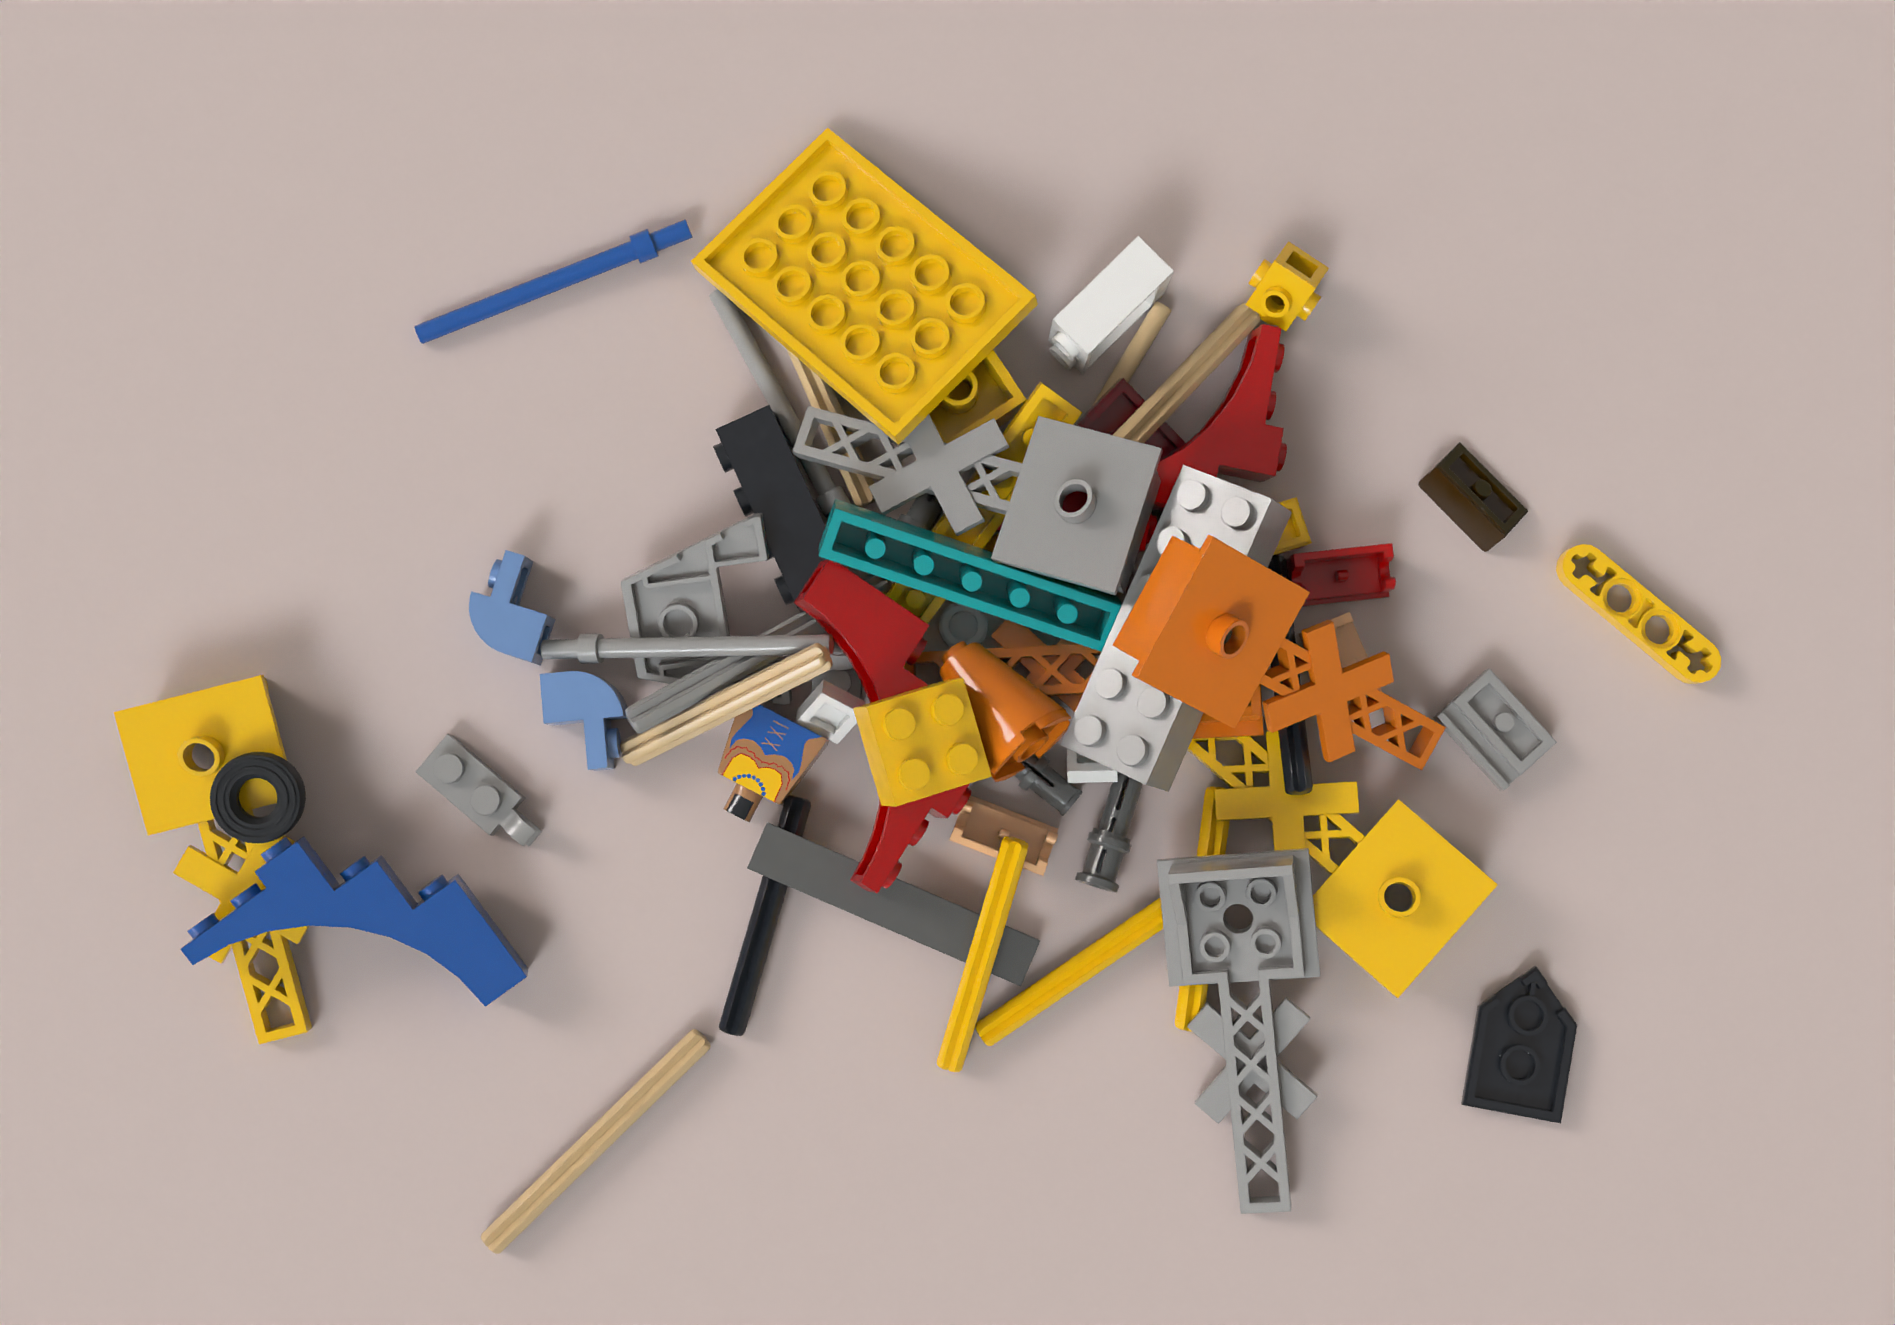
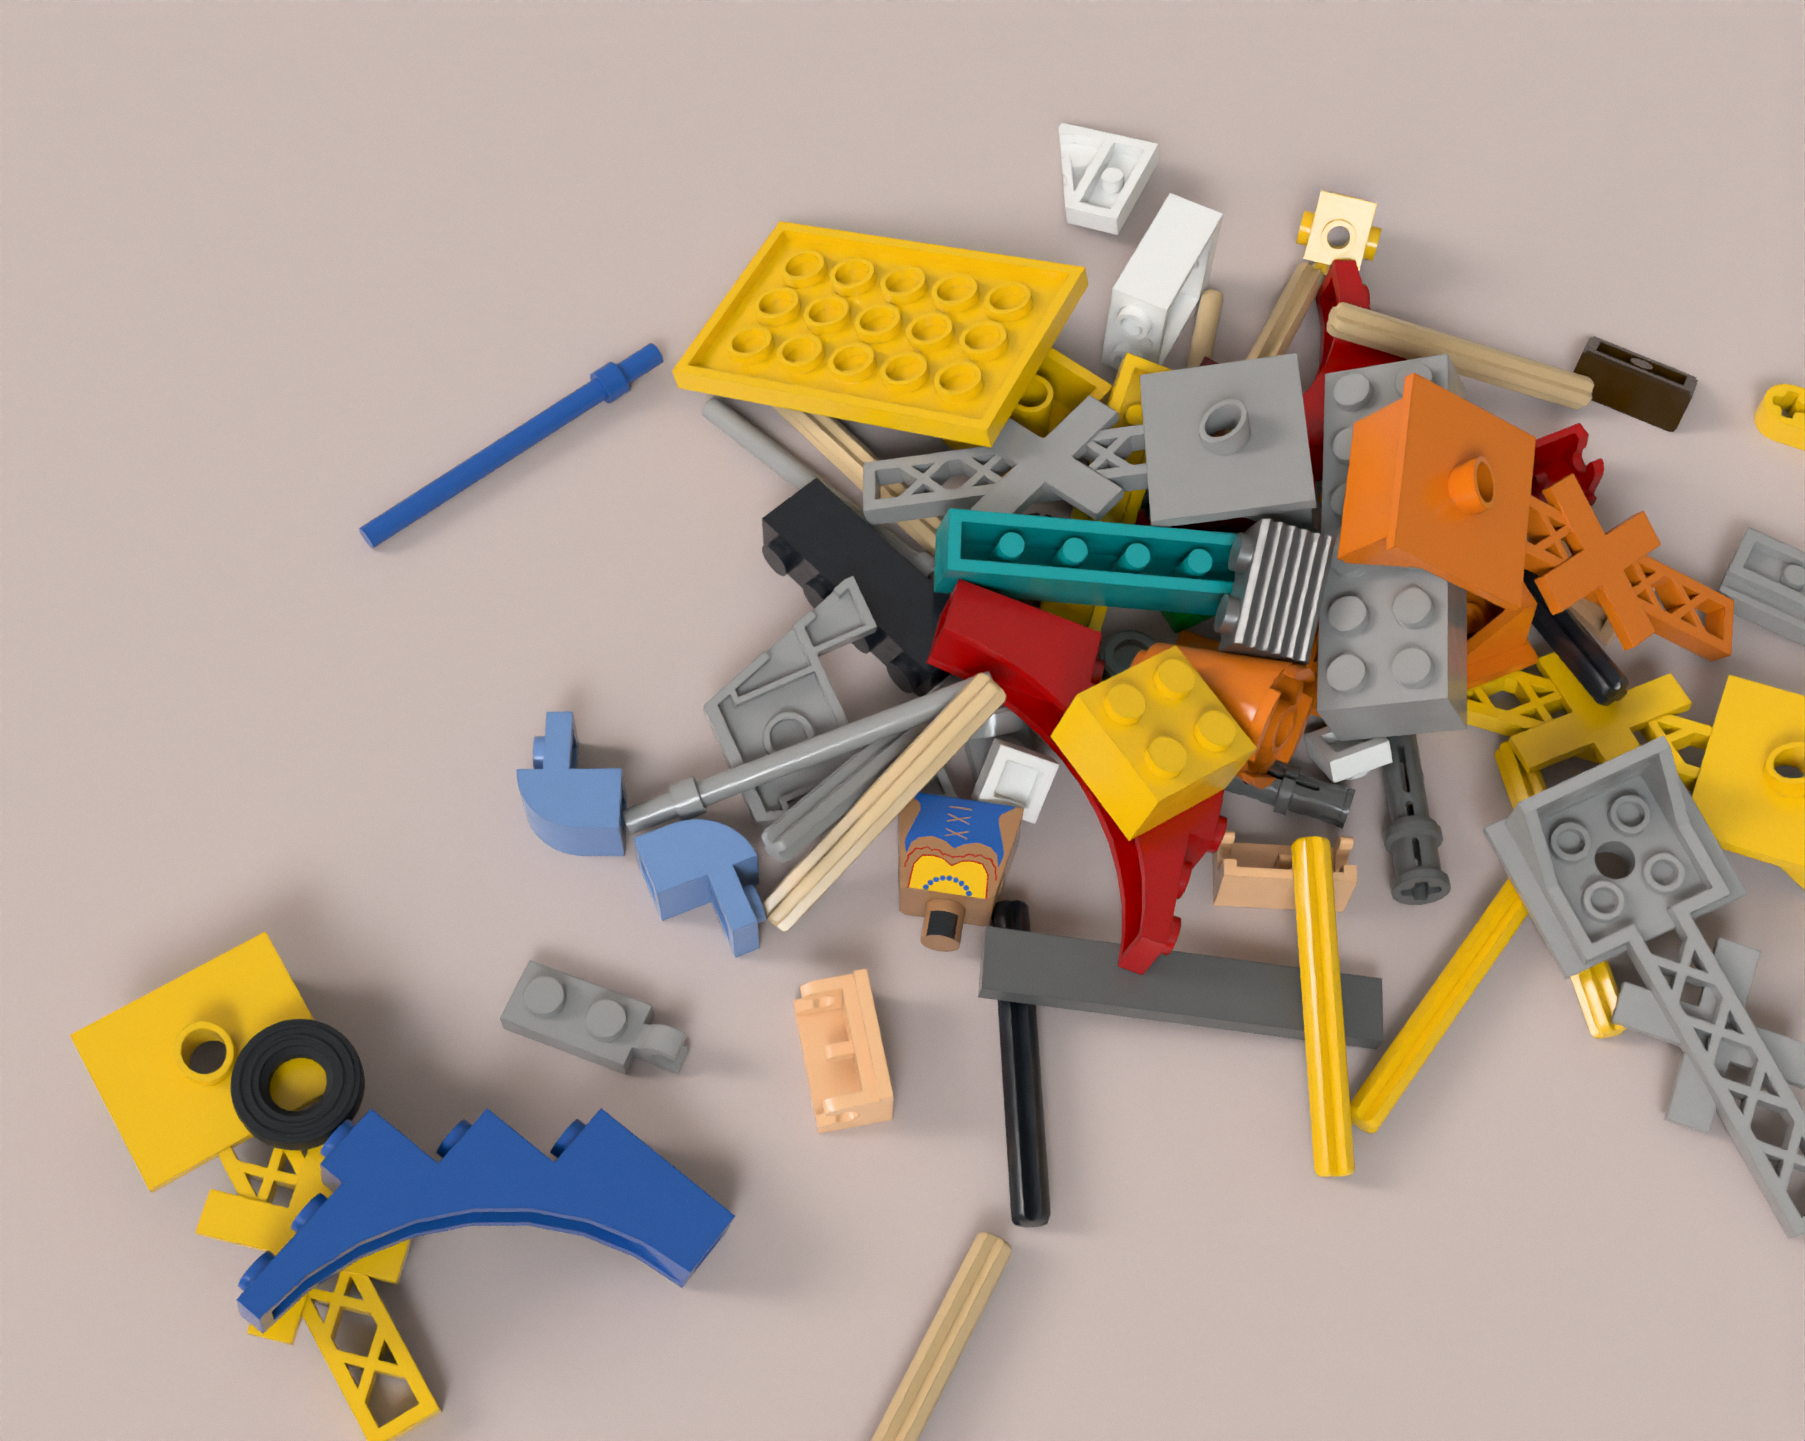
camera: 20 degrees left, 25 degrees down
(644, 874) = (843, 1052): none -> light nougat hinge
(1061, 649) = (1274, 592): none -> flat silver brick
(1116, 159) = (1103, 175): none -> white wing
(1325, 447) = (1468, 357): none -> tan axle

